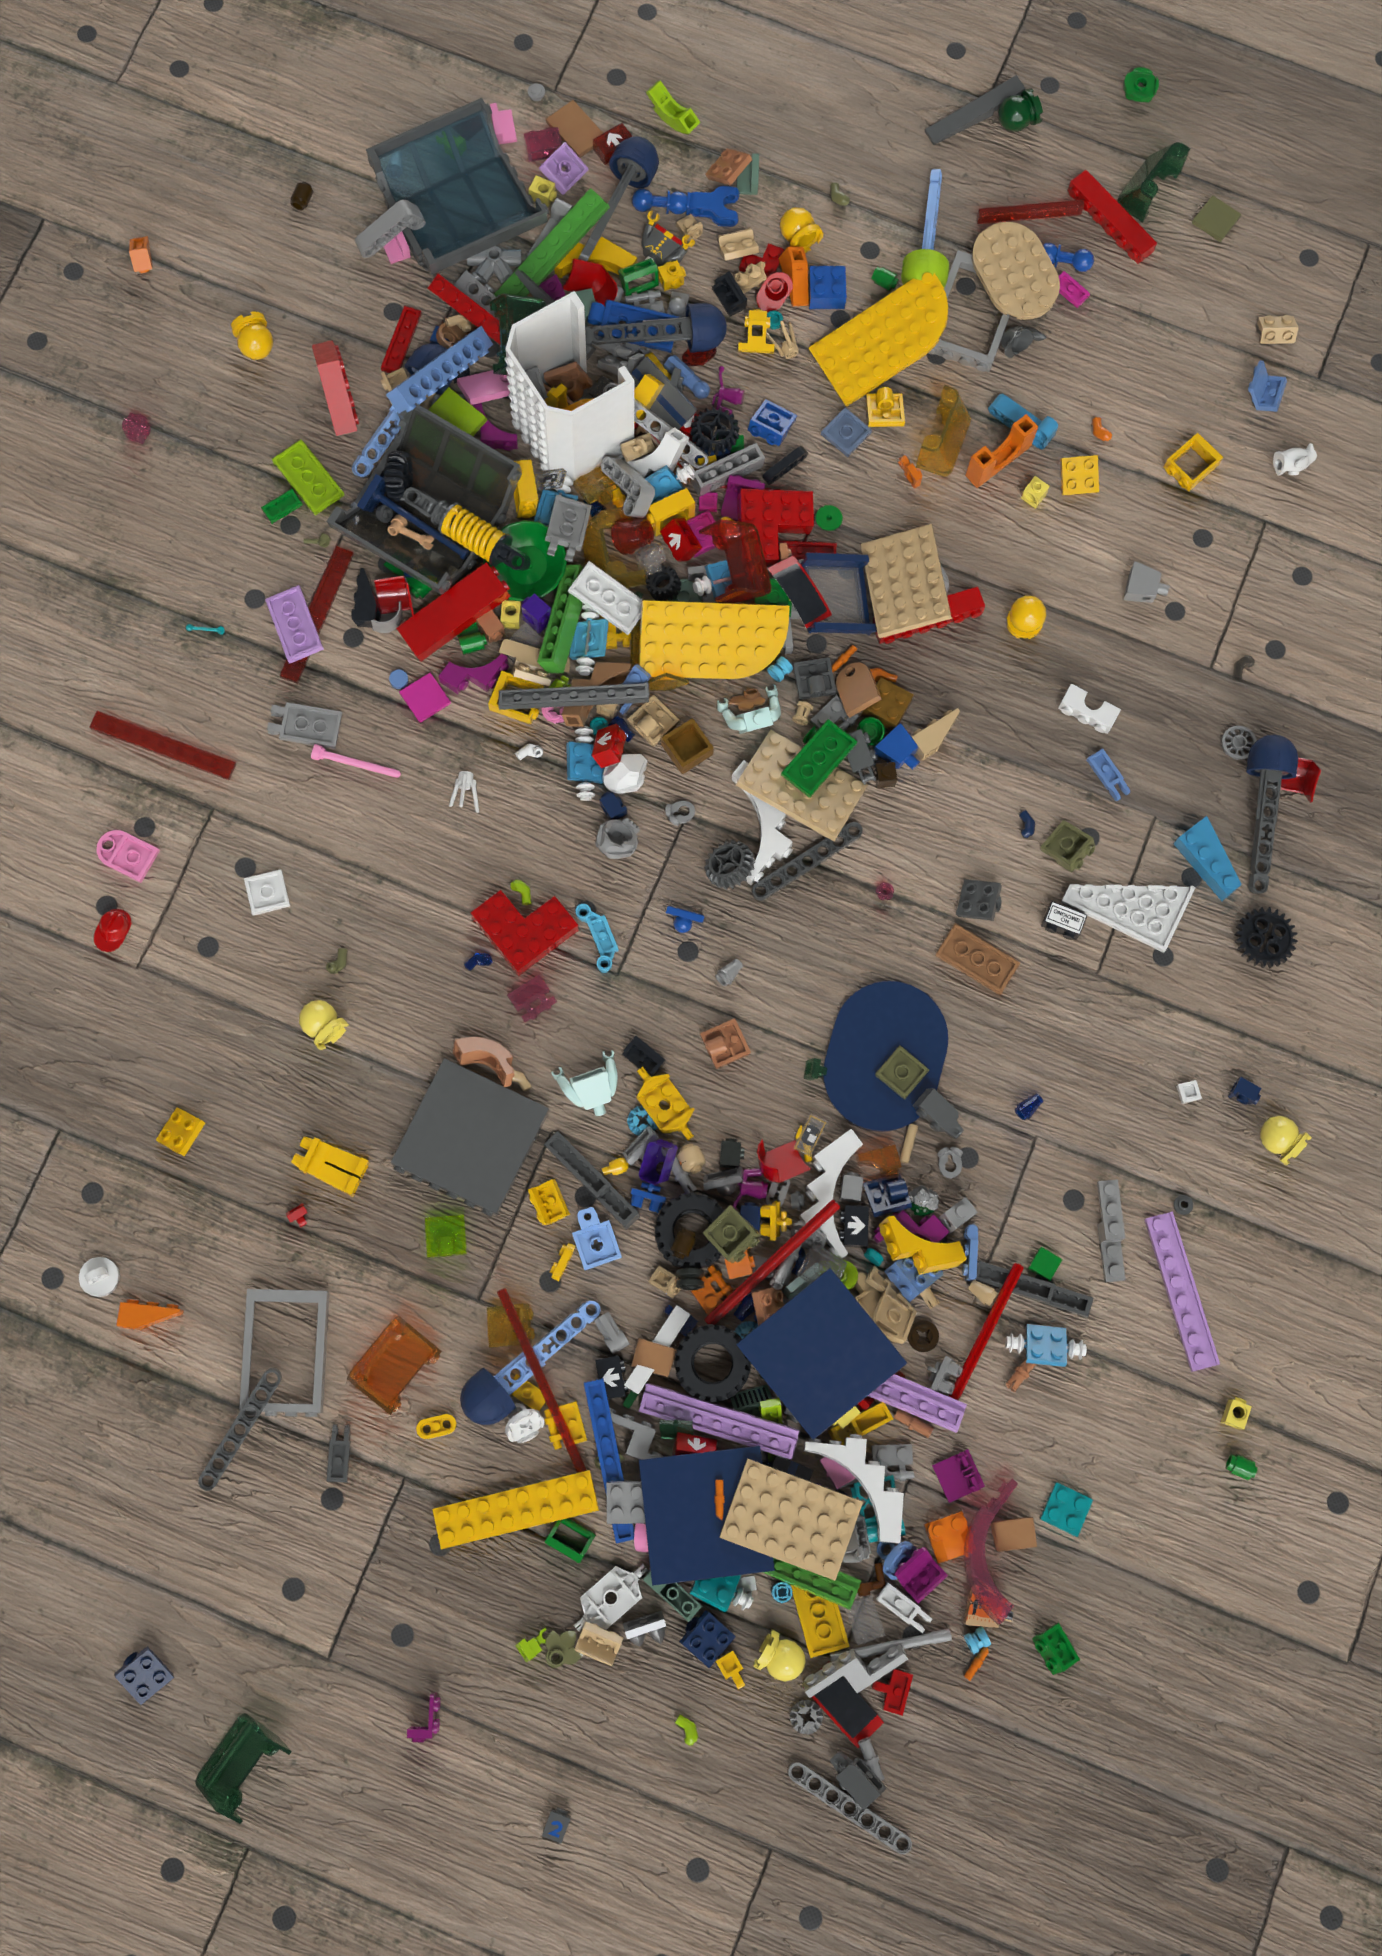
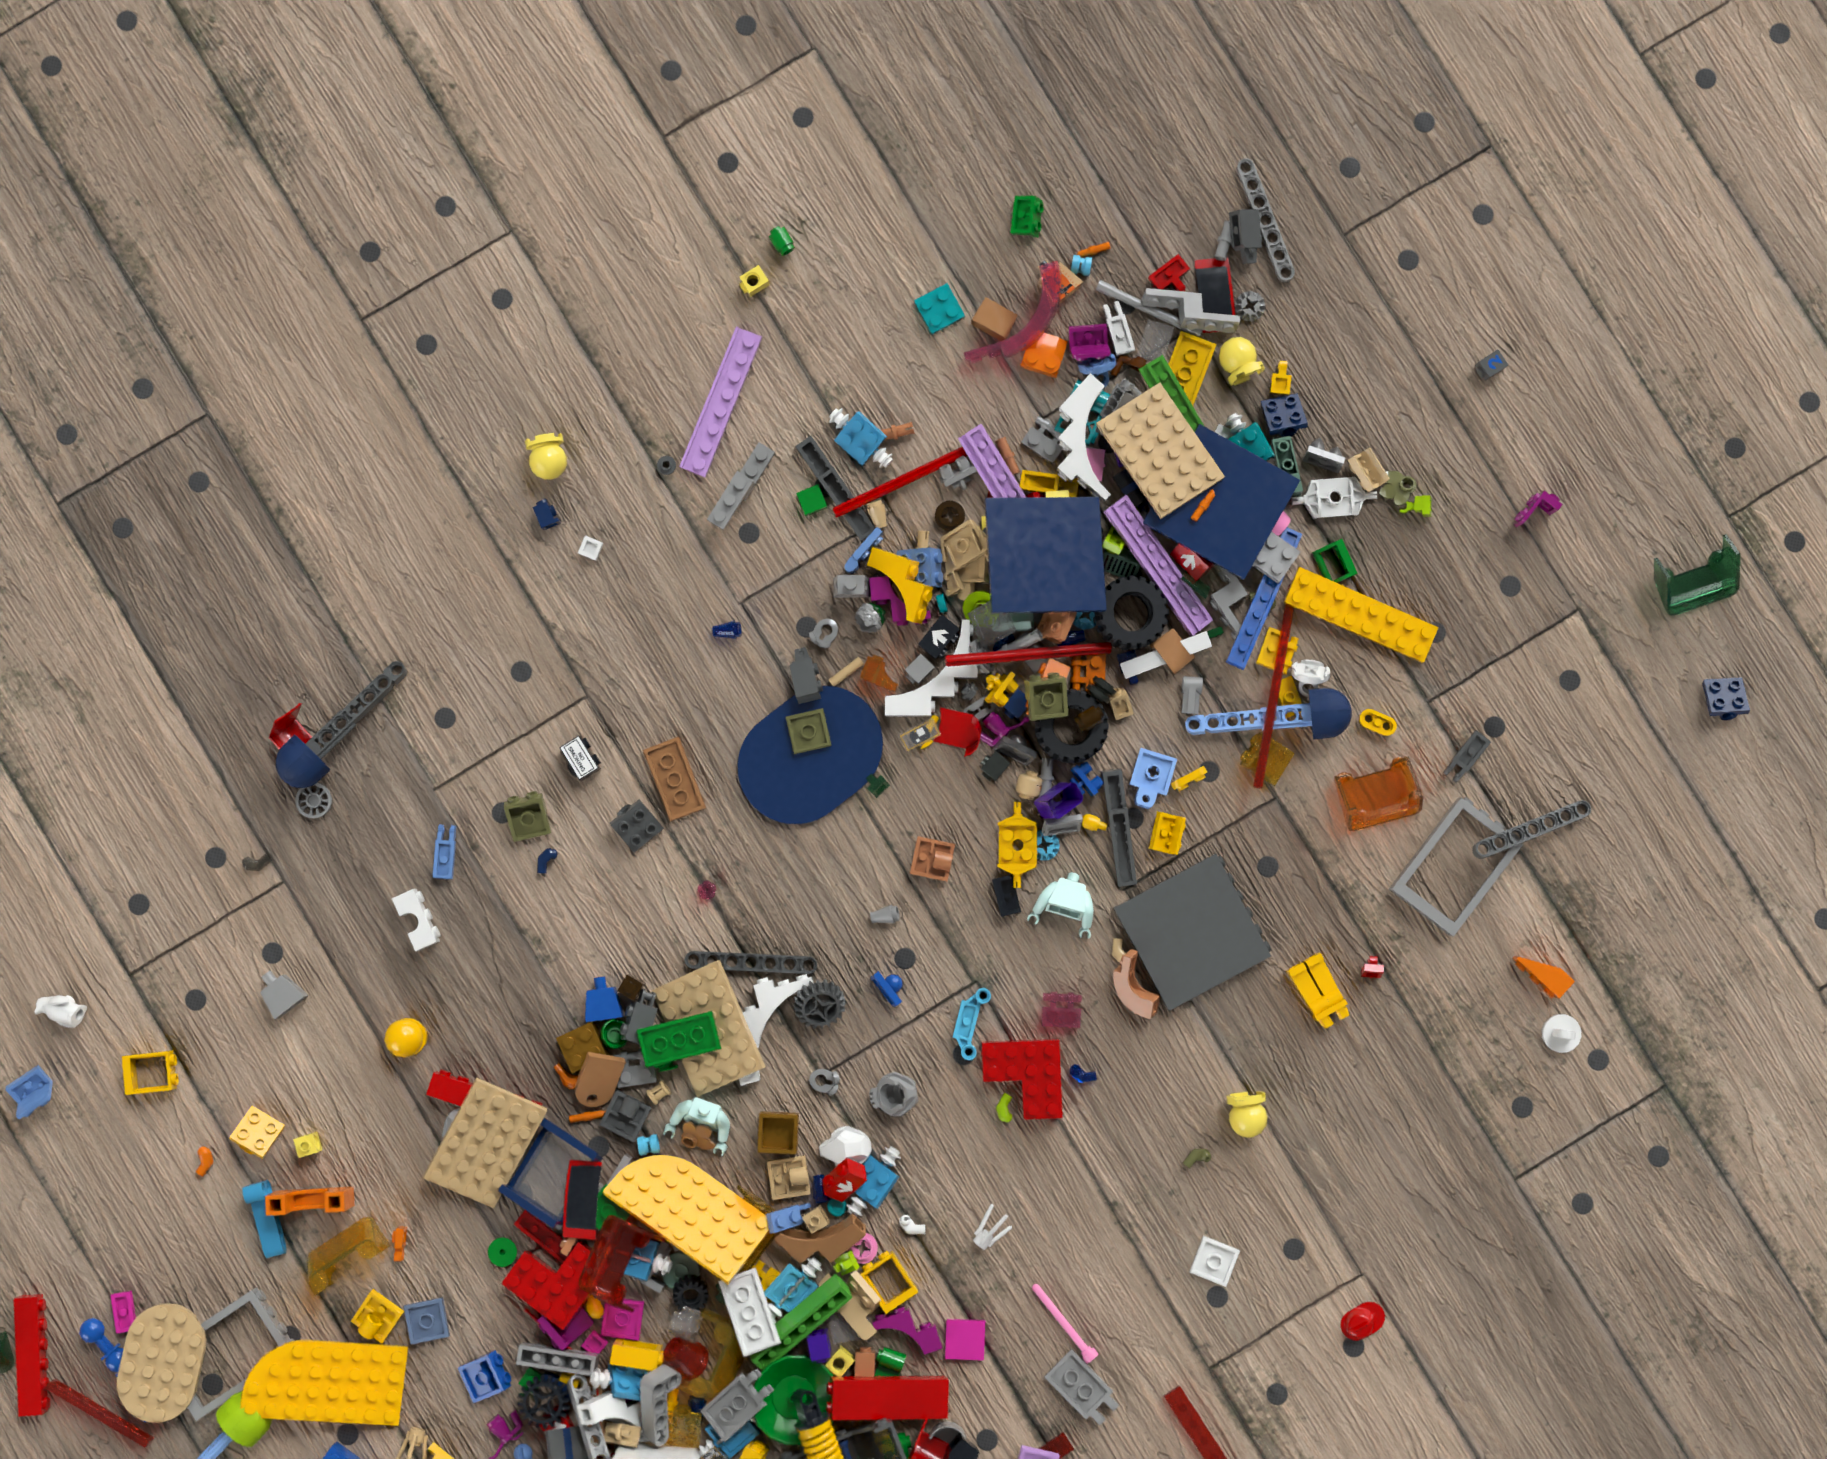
camera: 135 degrees left, 10 degrees up
(128, 854) = (1308, 1378): bright pink tile -> none
(180, 1131) = (1420, 1105): yellow plate -> none
(398, 679) = (975, 1372): medium blue tile -> none
(445, 1236) = (1267, 866): clear neon green plate -> none
(573, 696) = (843, 1243): dark grey tile -> none
(611, 1371) = (1215, 664): black brick -> none
(612, 806) = (877, 1126): dark blue brick -> none
(680, 539) = (646, 1323): red brick -> none
(691, 1734) = (1342, 361): lime arm -> none
(778, 1592) = (1203, 406): medium azure wheel -> none
(785, 465) = (503, 1328): black beam -> none
(885, 278) = (279, 1442): green brick -> none
(887, 1195) = (896, 642): dark blue plate -> none
(932, 737) = (569, 990): tan slope -> none
(958, 1476) = (1002, 392): magenta hinge -> none
(1018, 339) = (208, 1297): dark grey hair -> none
(1138, 911) = (512, 720): white wing -> none
(1208, 858) = (419, 726): dark azure wedge -> none
(1250, 930) = (419, 608): black gear -> none

